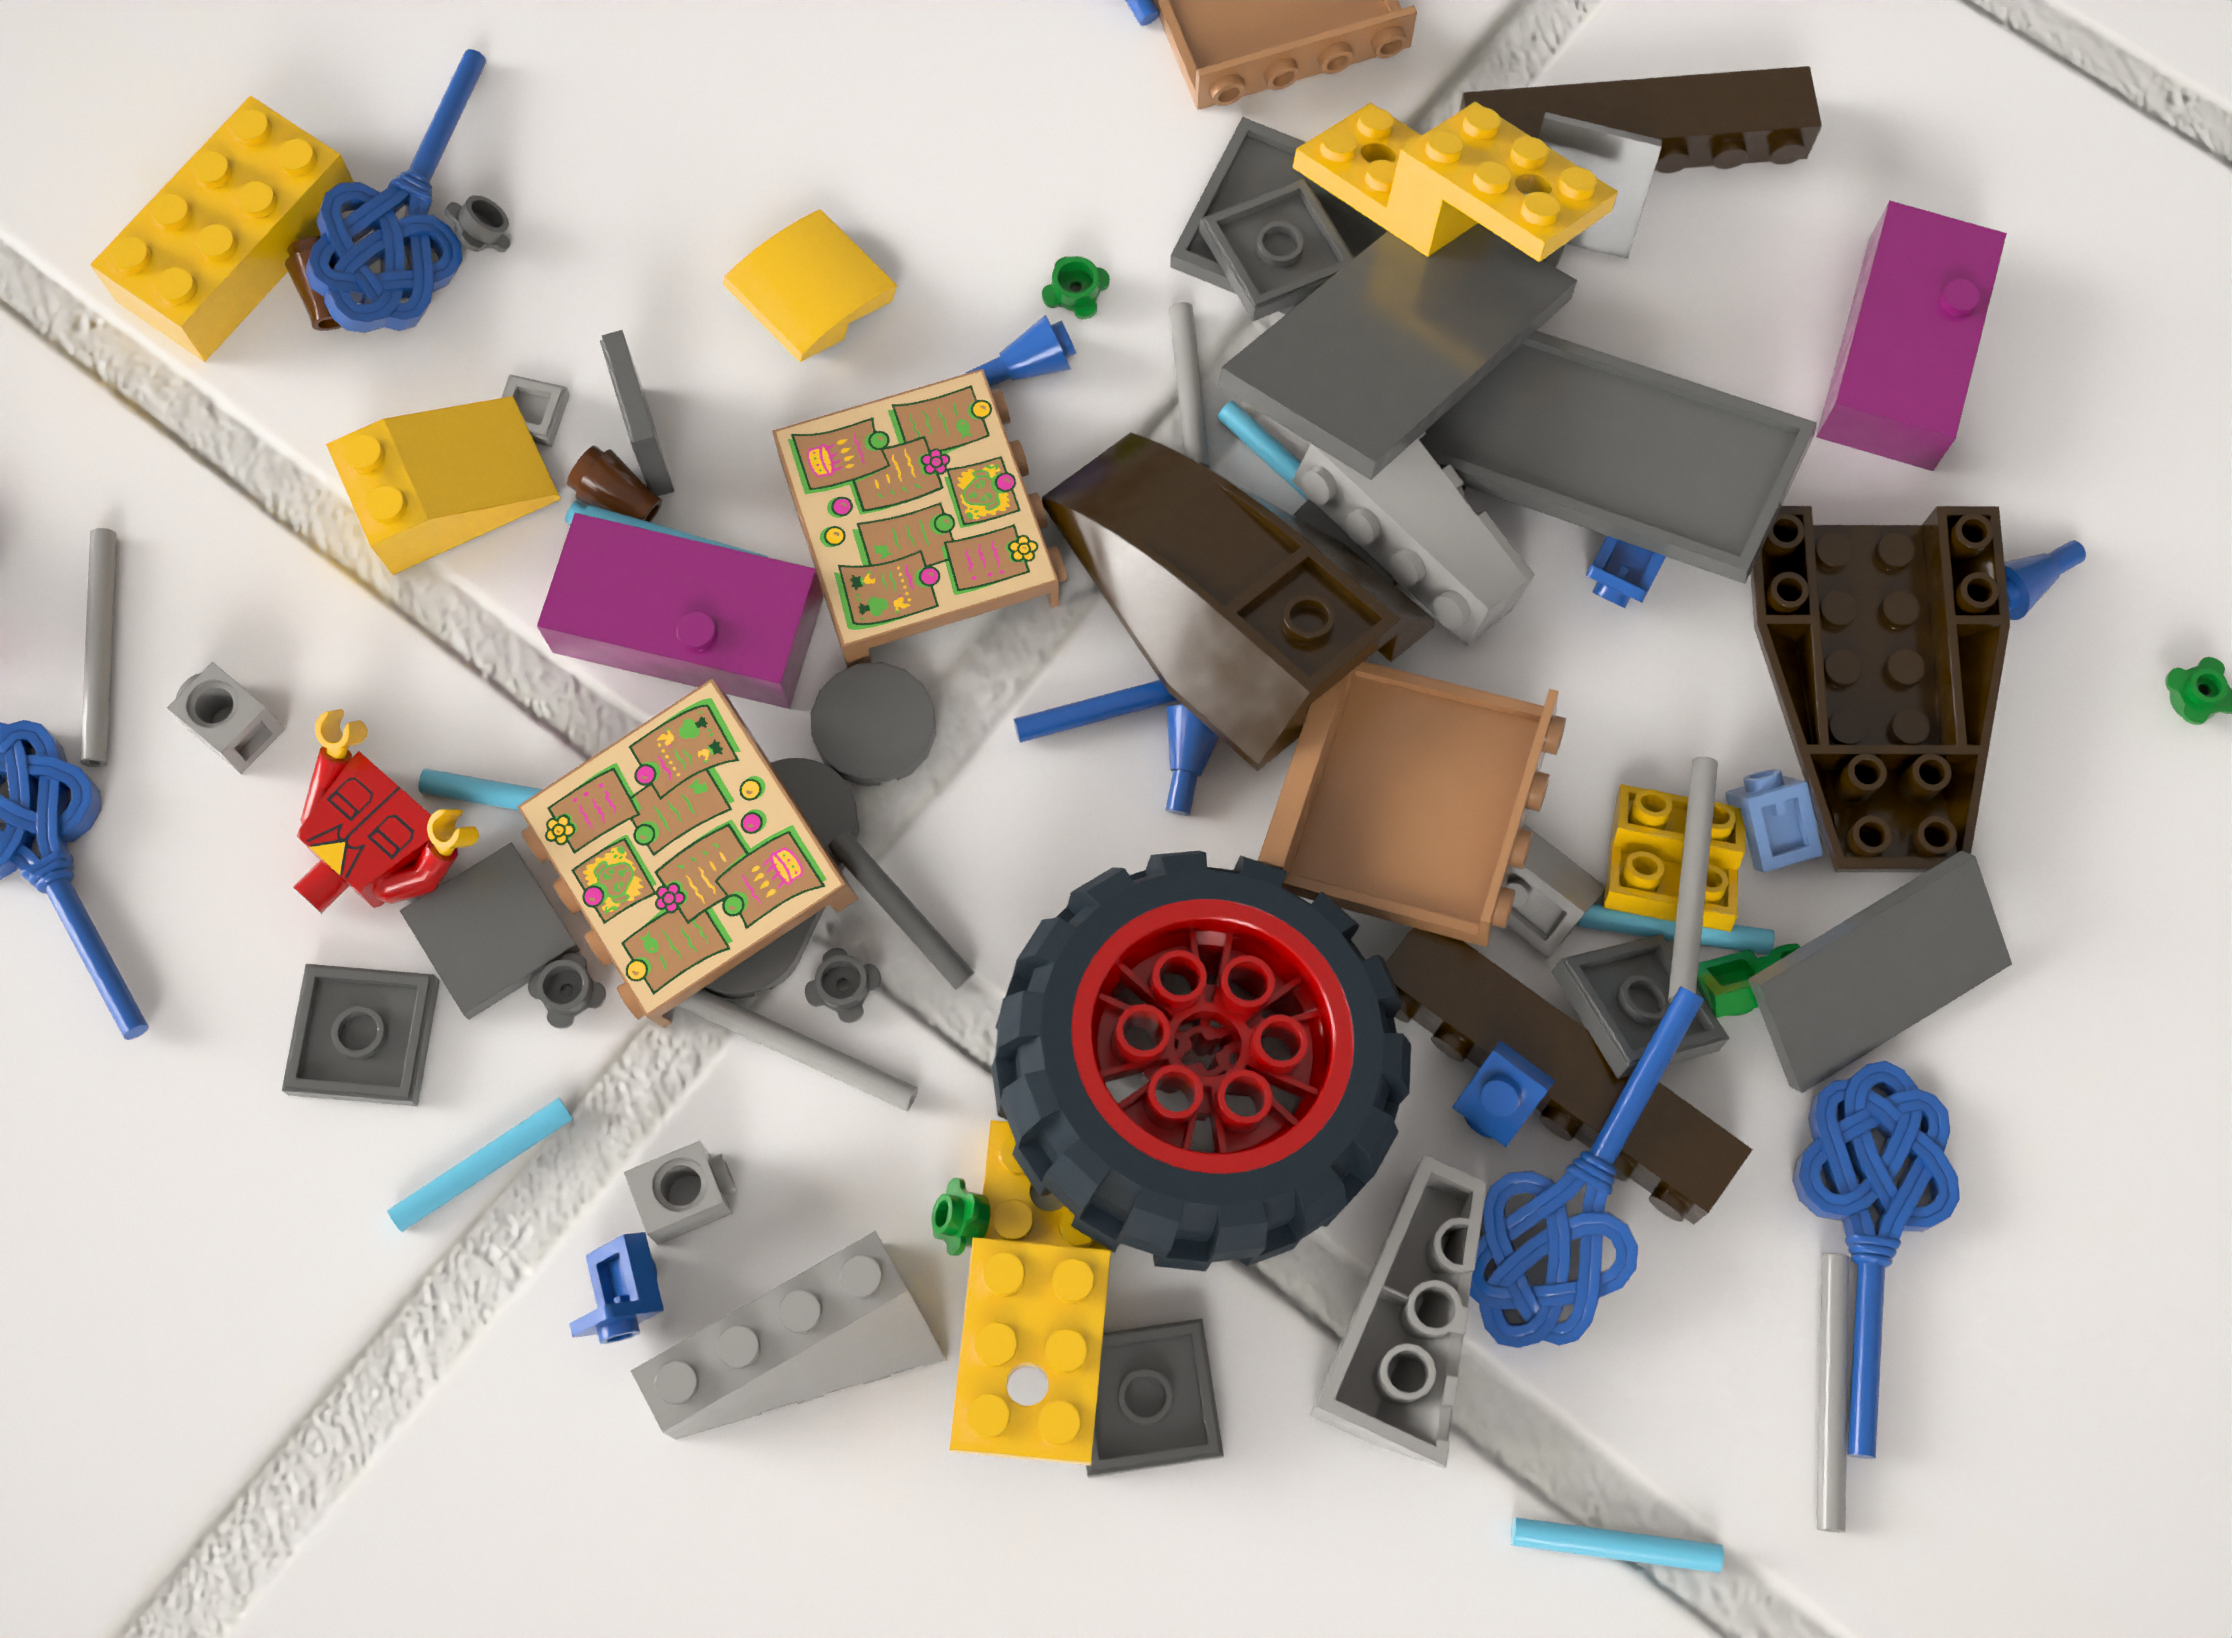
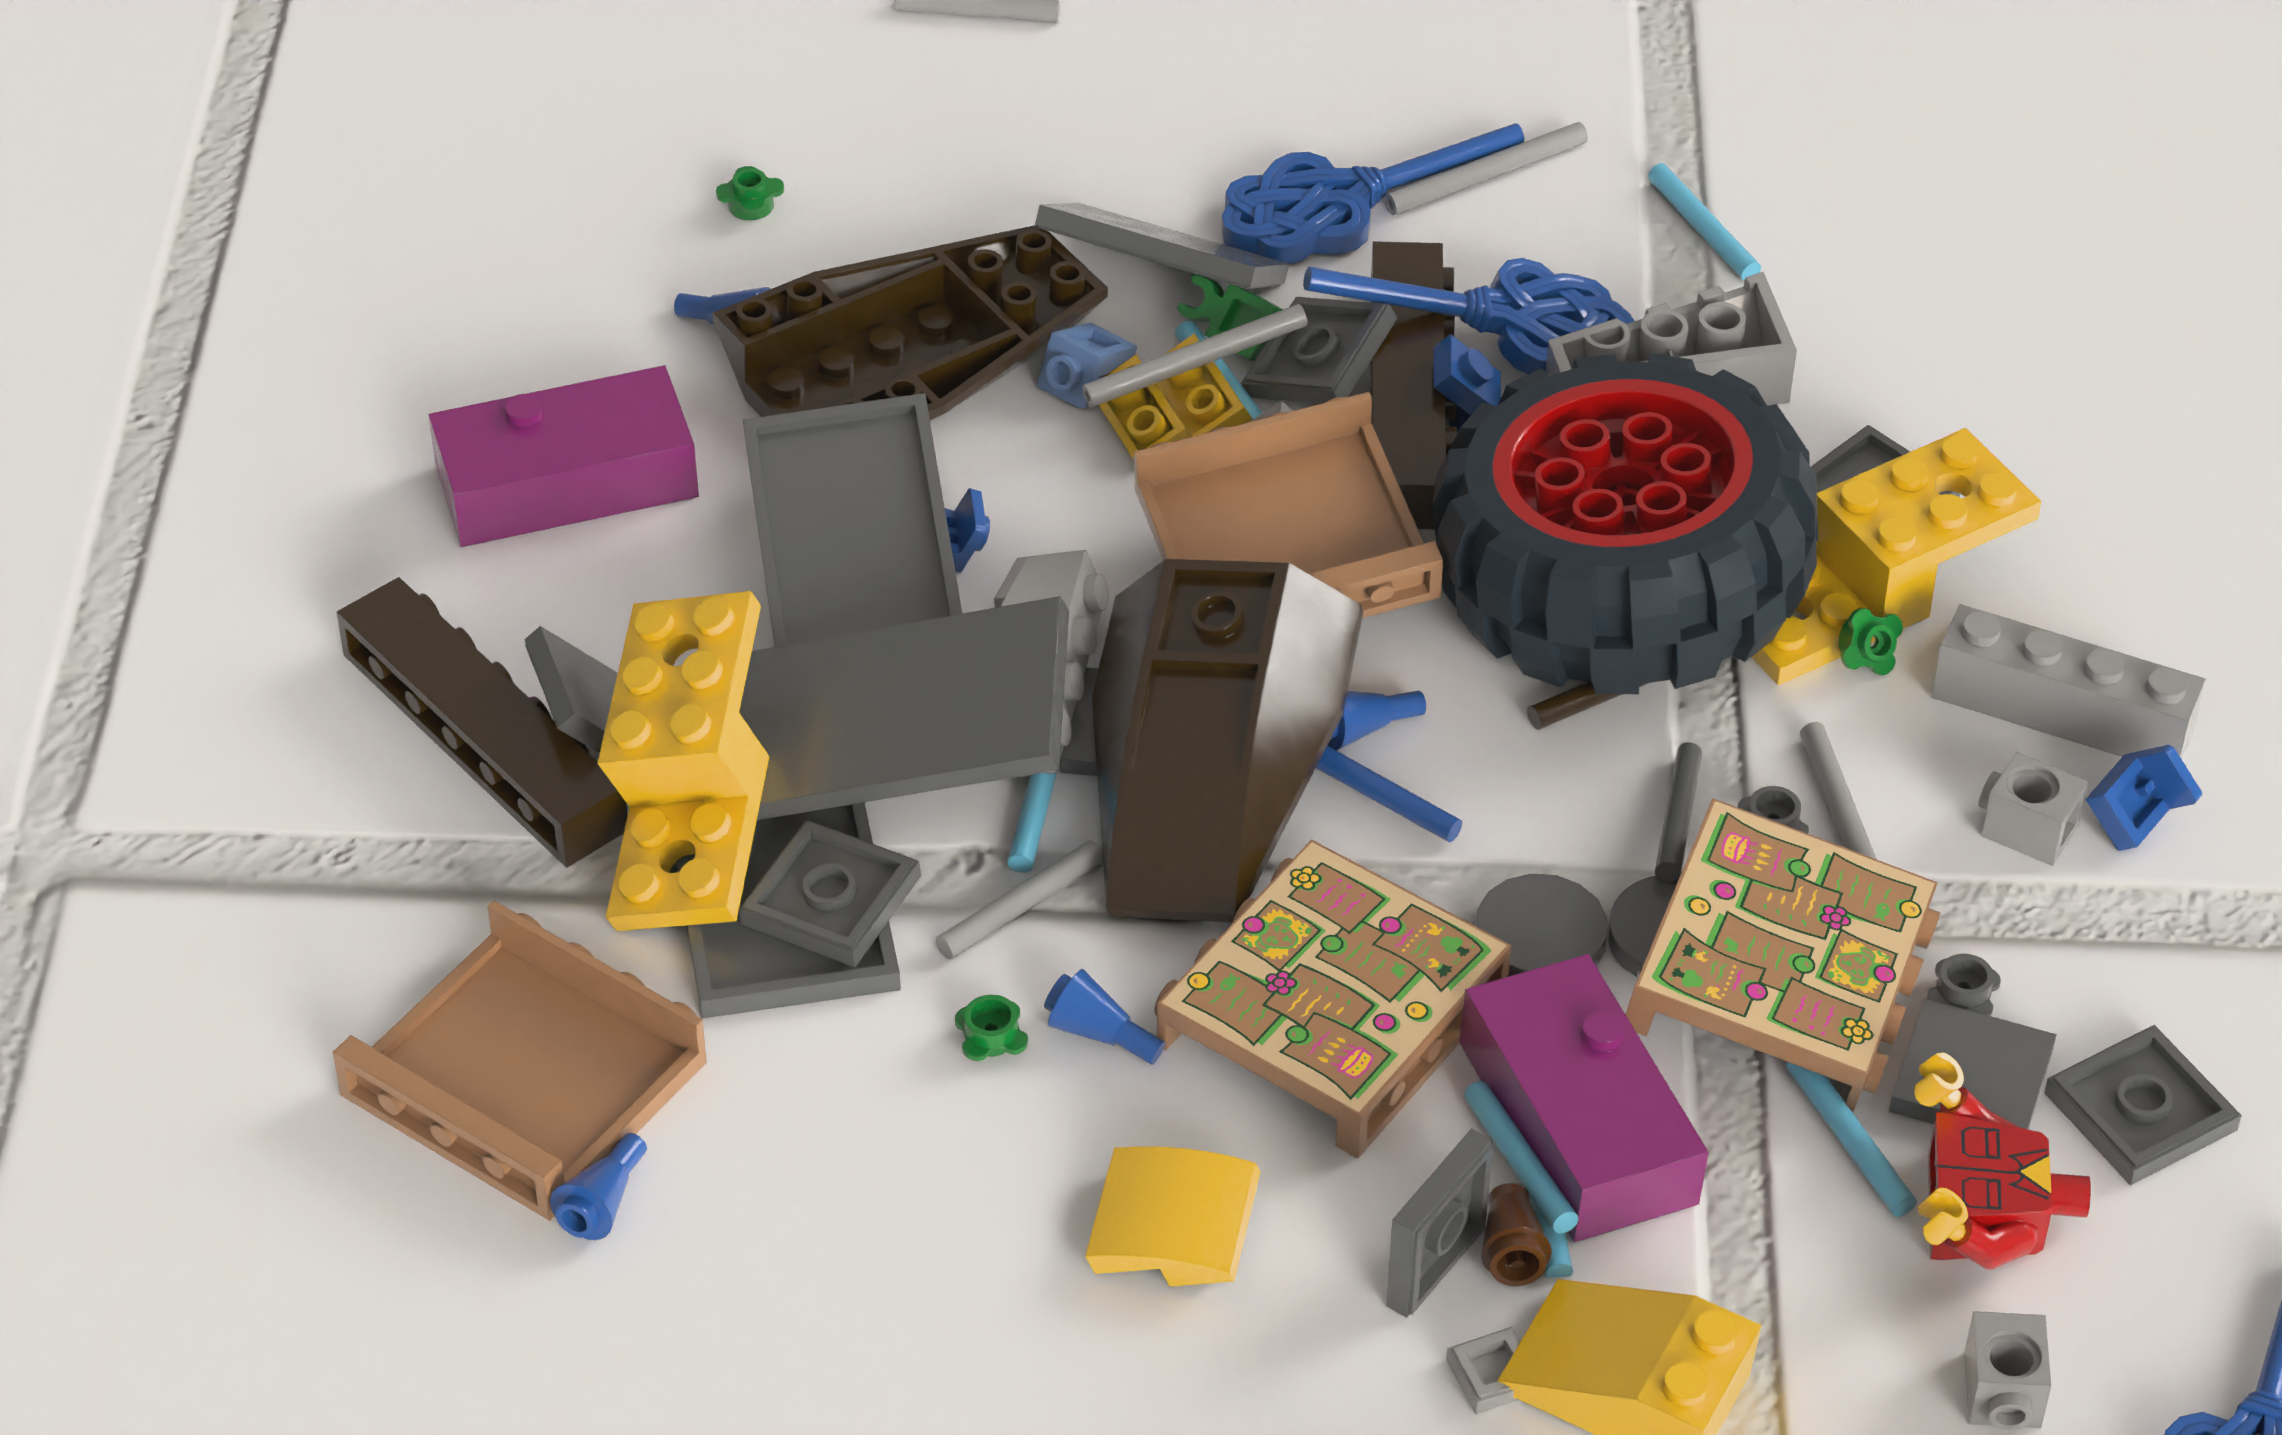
camera: 125 degrees left, 25 degrees down
(479, 1165) = (2147, 958): medium azure bar -> none

